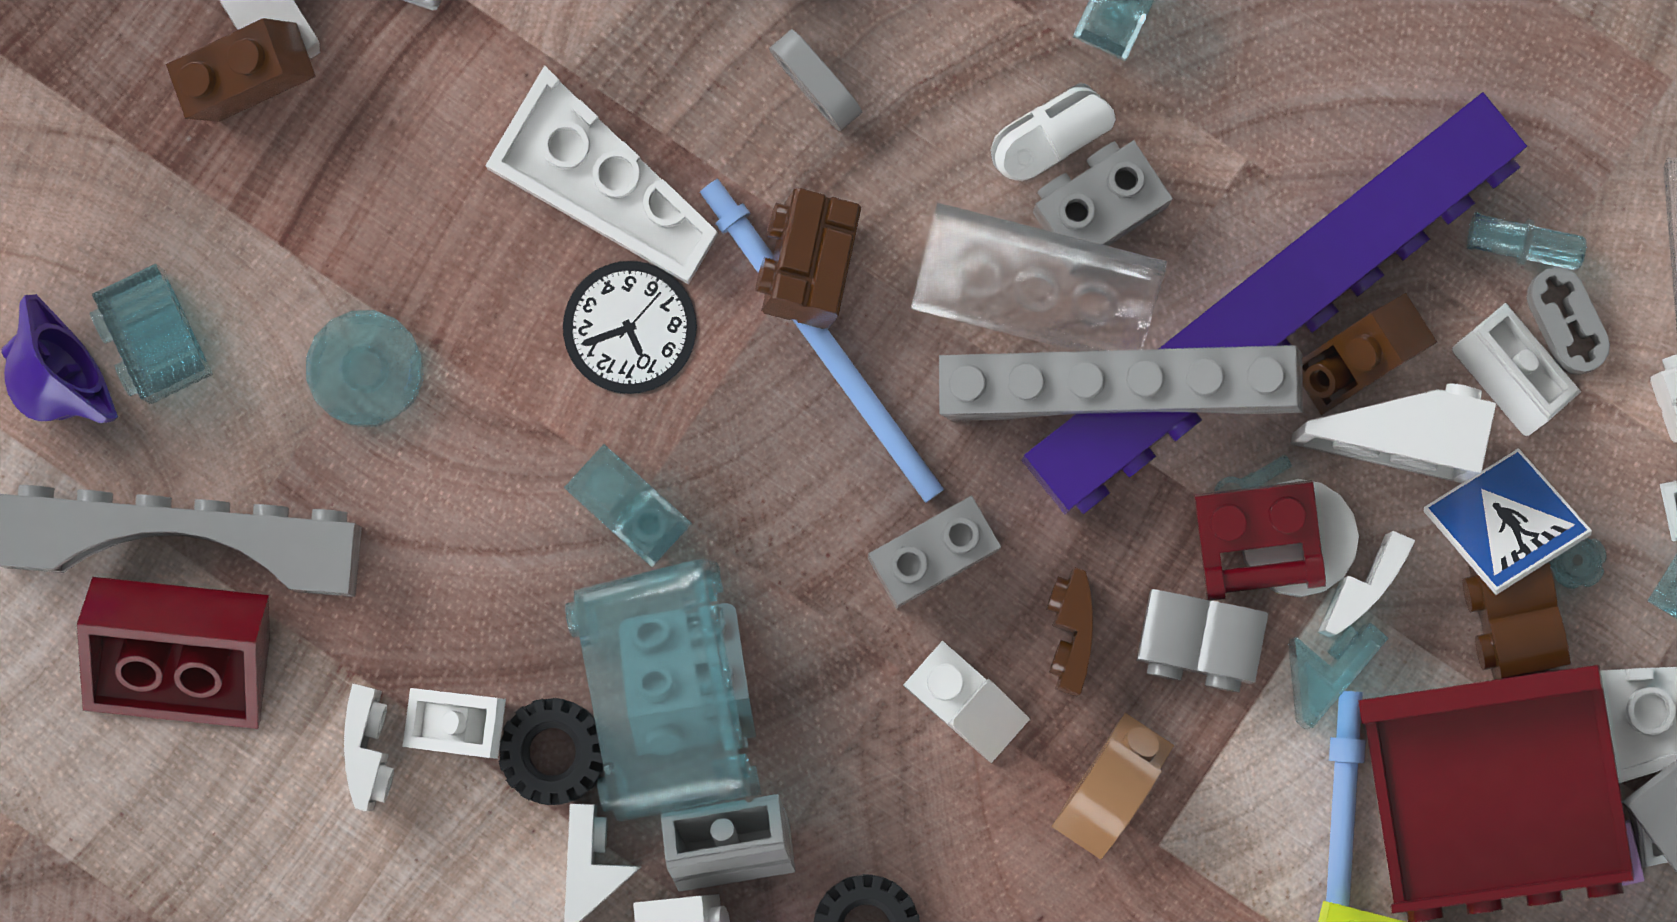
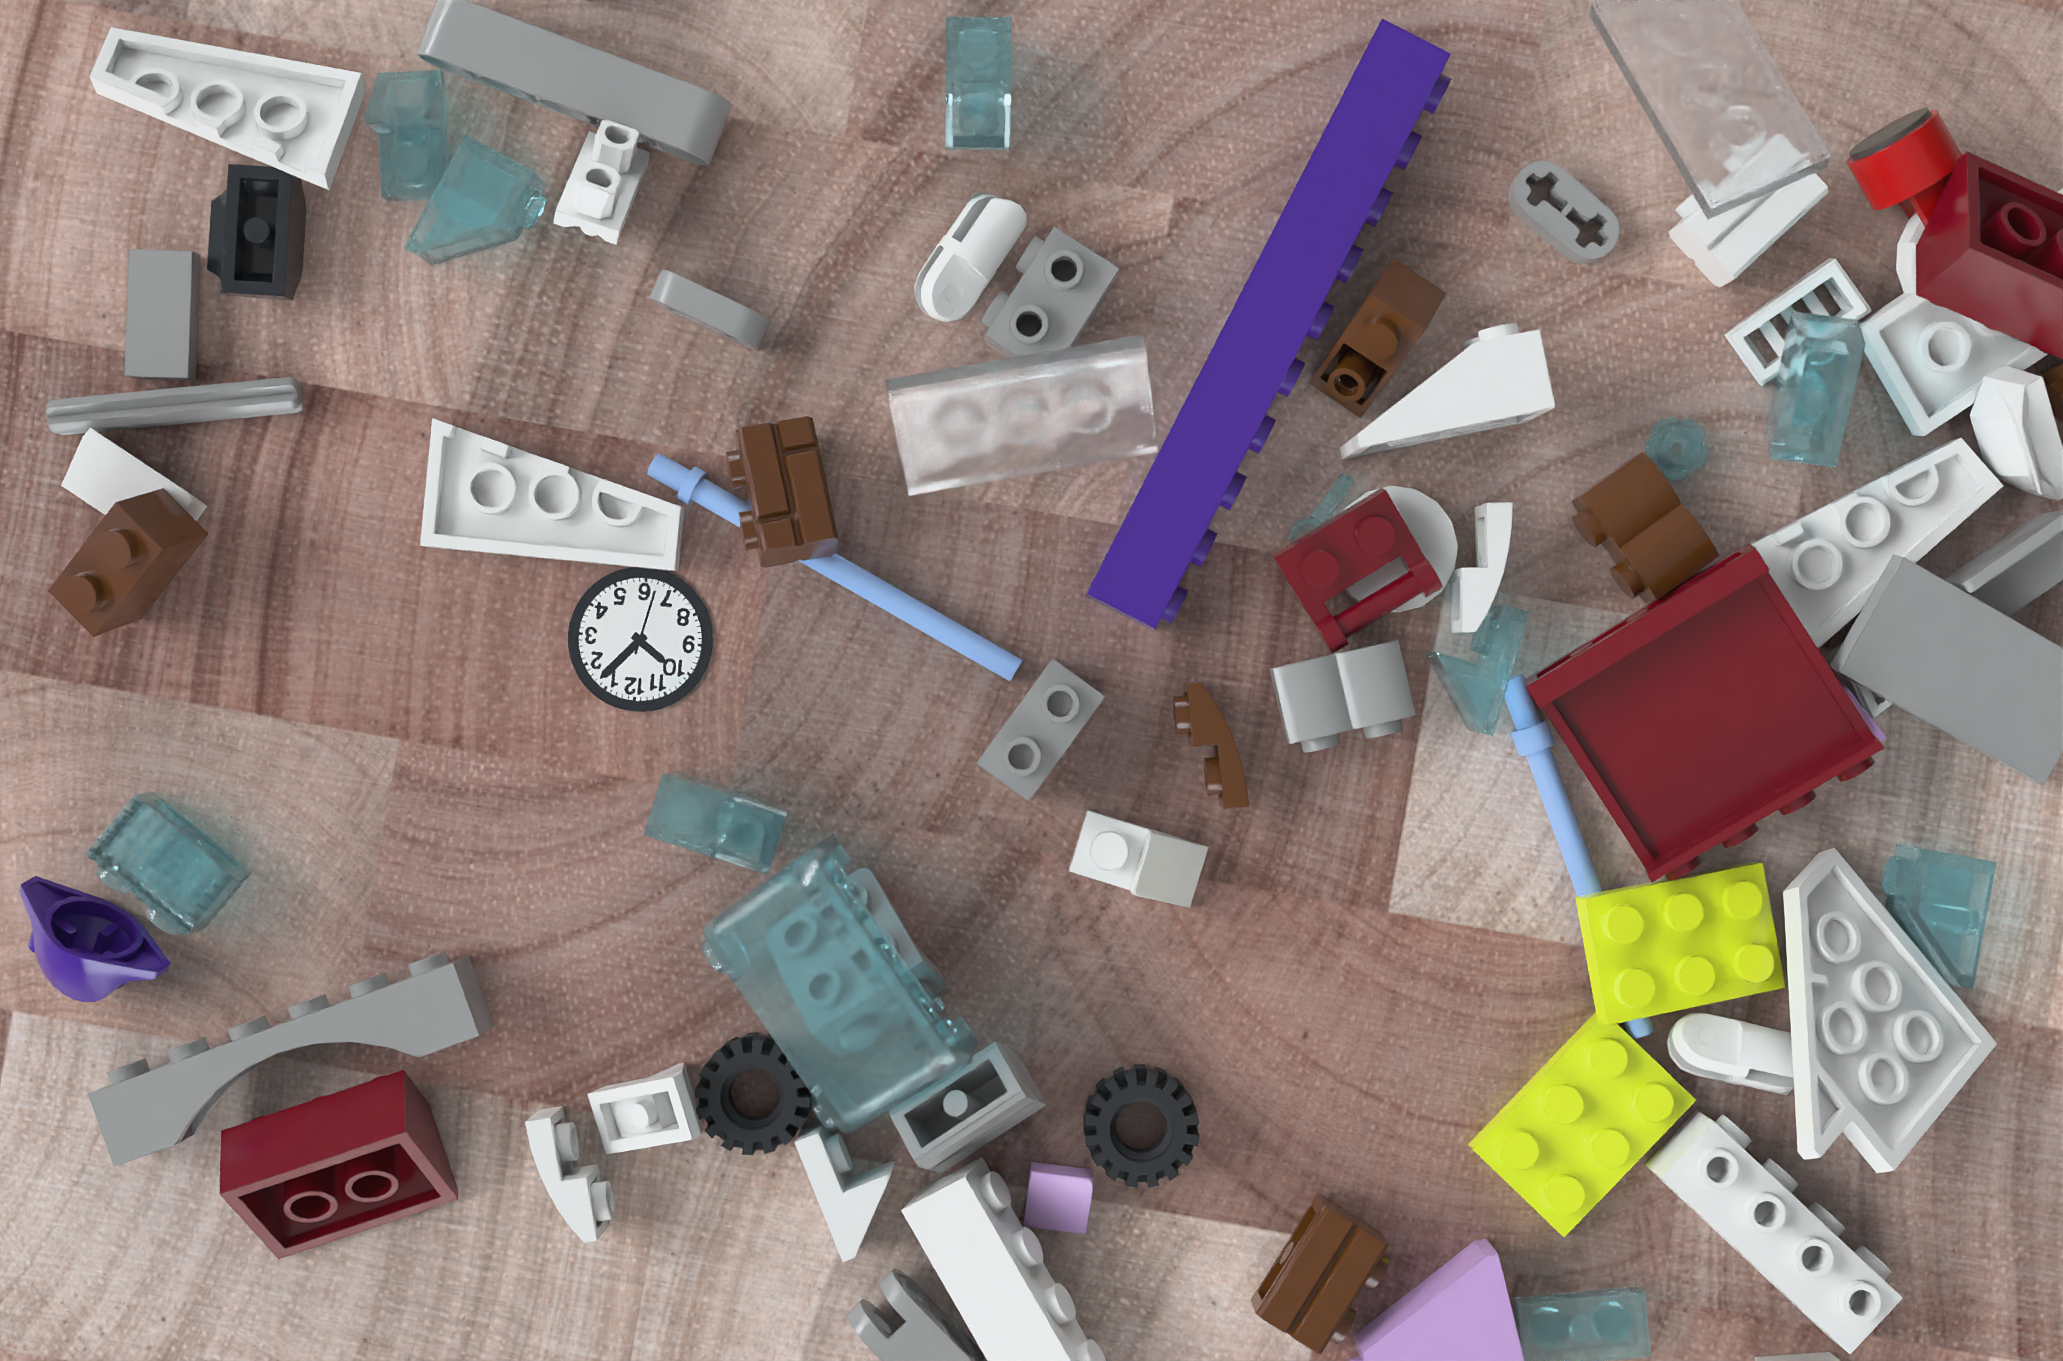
camera: 25 degrees left, 5 degrees up
(364, 368) = (396, 800): clear light blue tile -> none
(1113, 786) = (1322, 879): medium nougat brick -> none
(1121, 381) = (1152, 477): light grey arch -> none
(1507, 521) = (1594, 441): piece -> none
(1515, 370) = (1533, 286): white slope -> none
(1526, 242) = (1487, 152): clear light blue axle -> none

